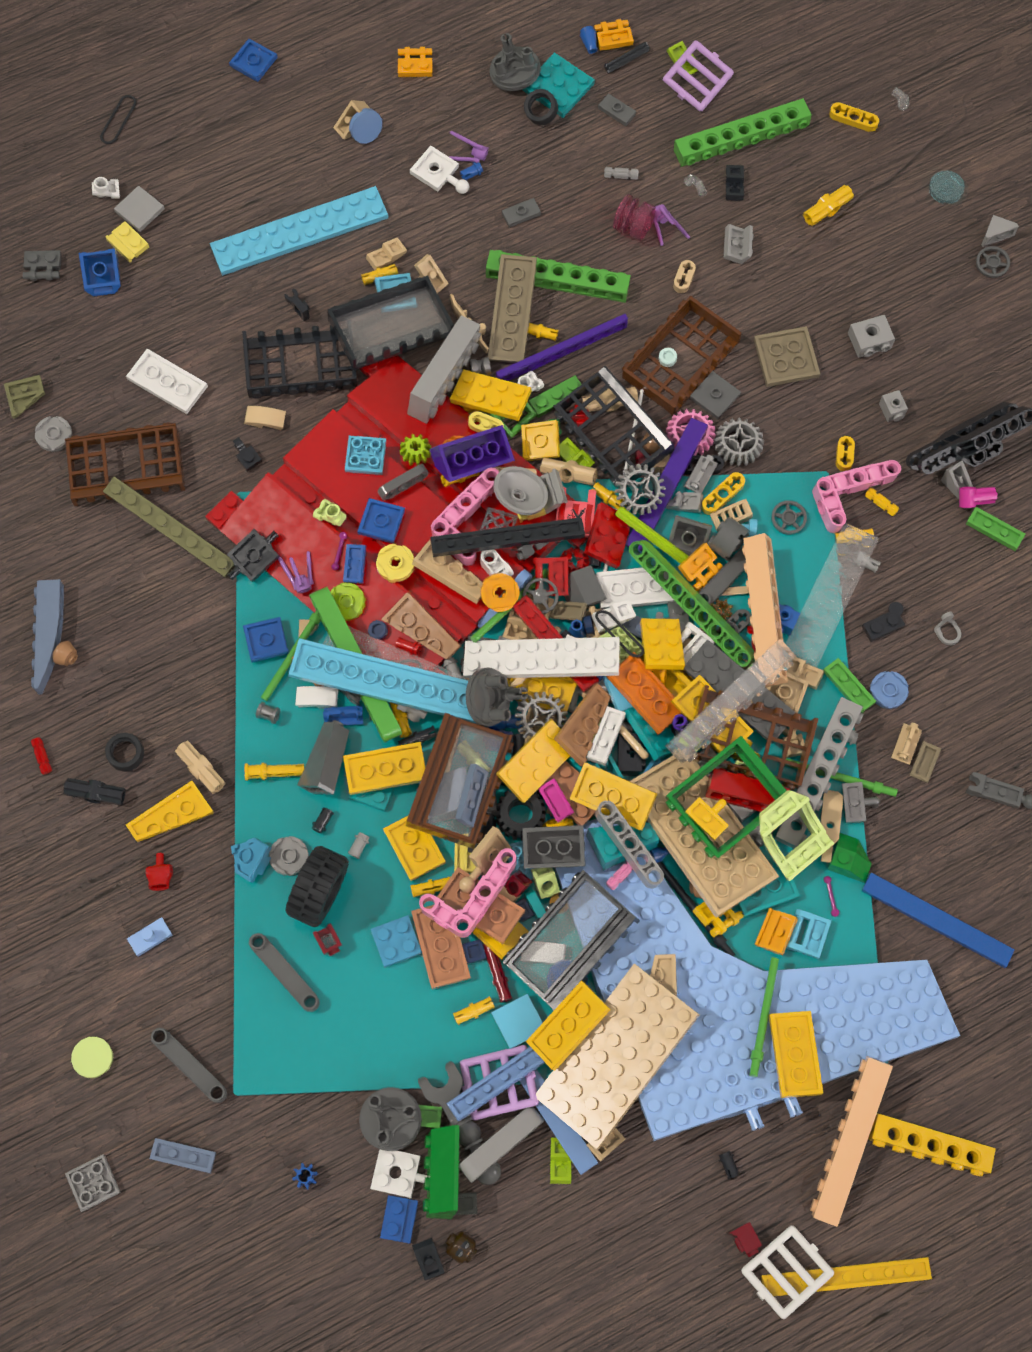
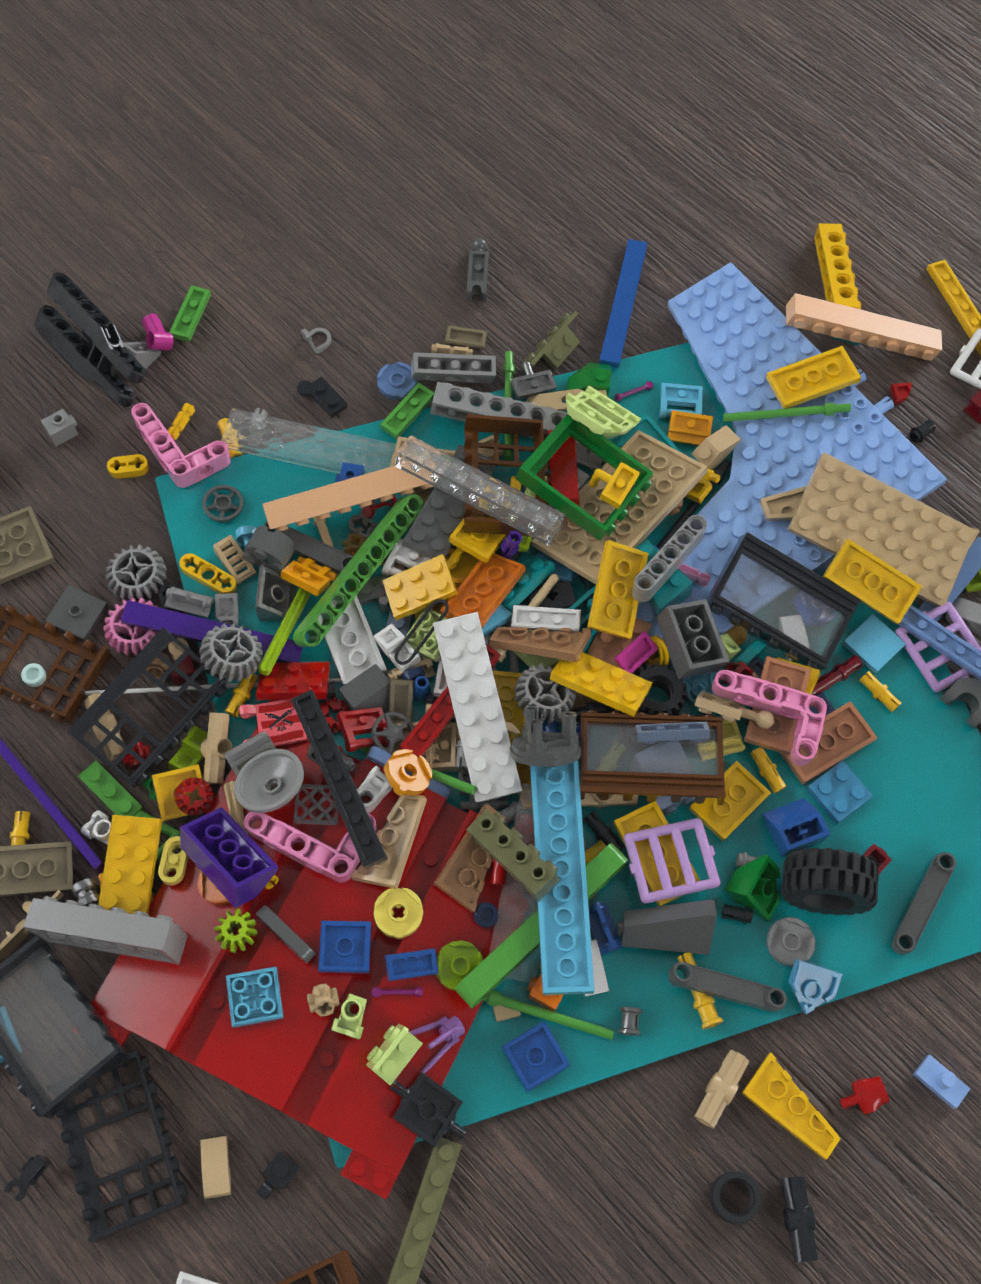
camera: 110 degrees left, 5 degrees down
(268, 789) = (727, 987): none -> dark grey piece
(296, 536) = (393, 1053): none -> yellowish green bracket
(338, 836) = (756, 886): none -> green slope
(346, 496) = (323, 1000): none -> tan gear
(376, 888) = (795, 826): none -> blue slope
(397, 784) = (668, 891): none -> lavender bar
(408, 646) = (513, 854): none -> olive brick
(534, 455) = (183, 801): none -> red gear
(745, 942) = (716, 447): none -> tan slope
(779, 1164) = (900, 392): none -> red tile
(886, 735) = (453, 367): none -> light grey brick
(898, 840) = (557, 345): none -> olive bracket

